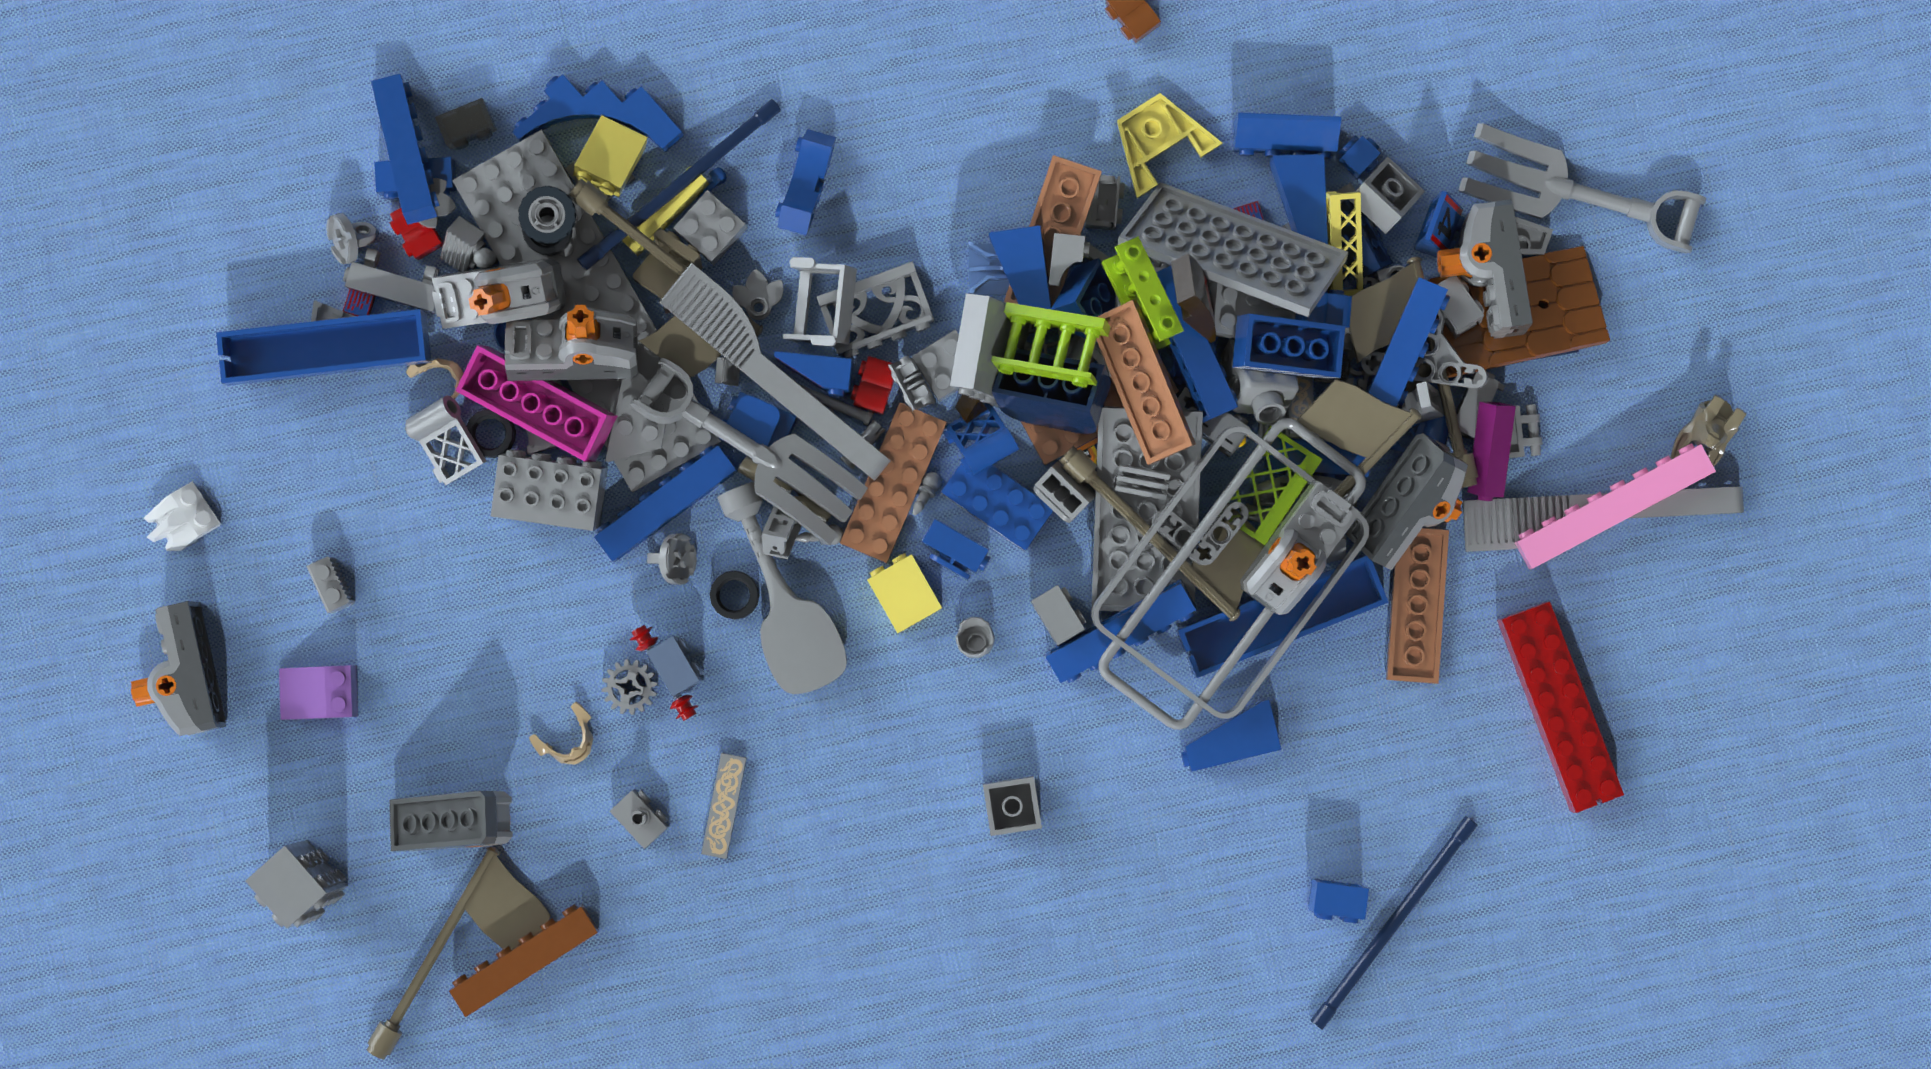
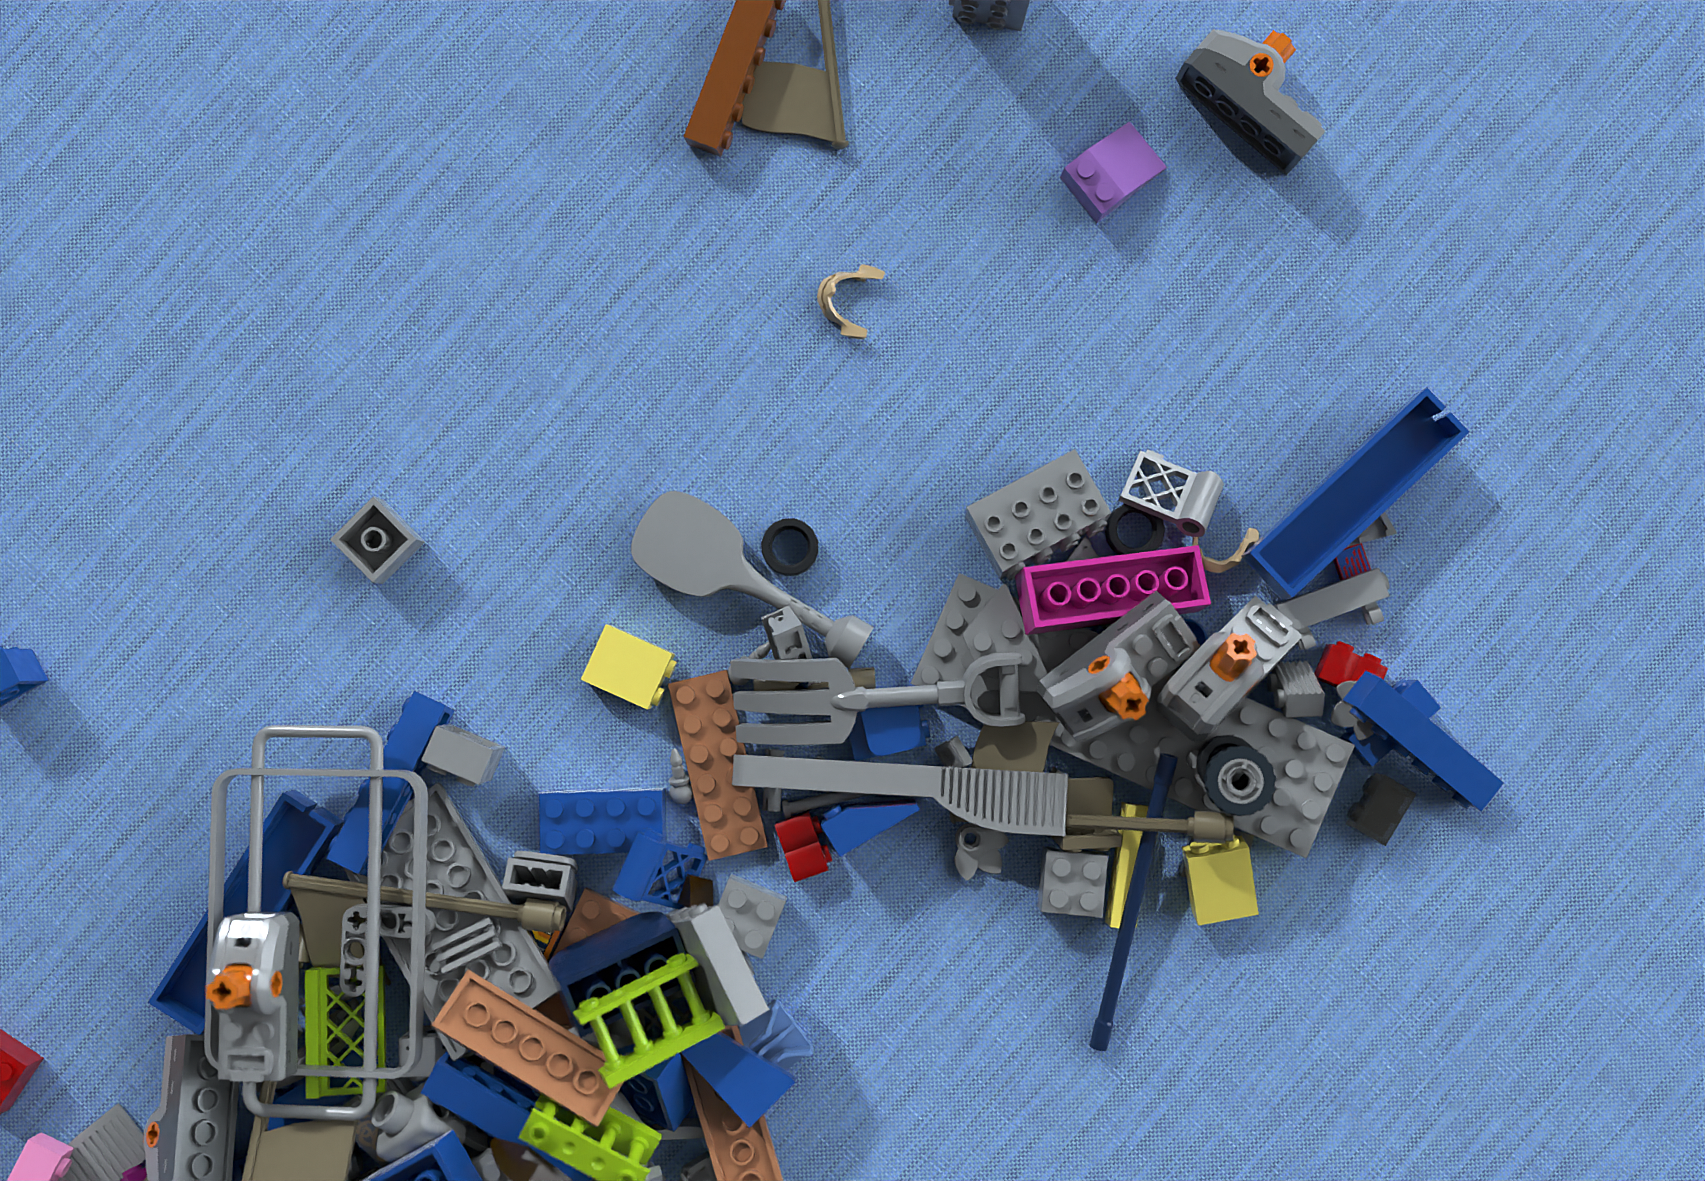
camera: 135 degrees right, 0 degrees up
(182, 518) = (1363, 238): white plate -> none
(330, 584) = (1177, 278): light grey brick -> none
(347, 237) = (1409, 617): light grey tile -> none
(450, 821) = (895, 135): dark grey piece -> none
(484, 258) = (1266, 693): light grey bar -> none
(567, 104) = (1298, 899): blue arch -> none
(633, 675) = (829, 400): light grey gear -> none
(640, 818) = (724, 273): light grey brick -> none
(666, 503) = (919, 584): blue brick -> none
(673, 666) = (795, 436): sand blue brick -> none
(676, 559) = (869, 539): light grey tile -> none
(718, 177) = (1100, 935): blue hand -> none
(724, 805) = (655, 343): tile -> none
(805, 186) = (1009, 987): blue brick -> none
(844, 302) = (952, 911): light grey piece -> none
(896, 281) = (856, 961): light grey fence -> none
(911, 383) = (756, 868): light grey hinge -> none
(955, 550) = (606, 744): blue brick -> none
(975, 637) = (529, 674): light grey hair -> none
(1065, 253) = (706, 1116): light grey arch -> none
(1238, 738) = (209, 754): blue slope -> none
(1418, 609) = (119, 1009): nougat plate -> none

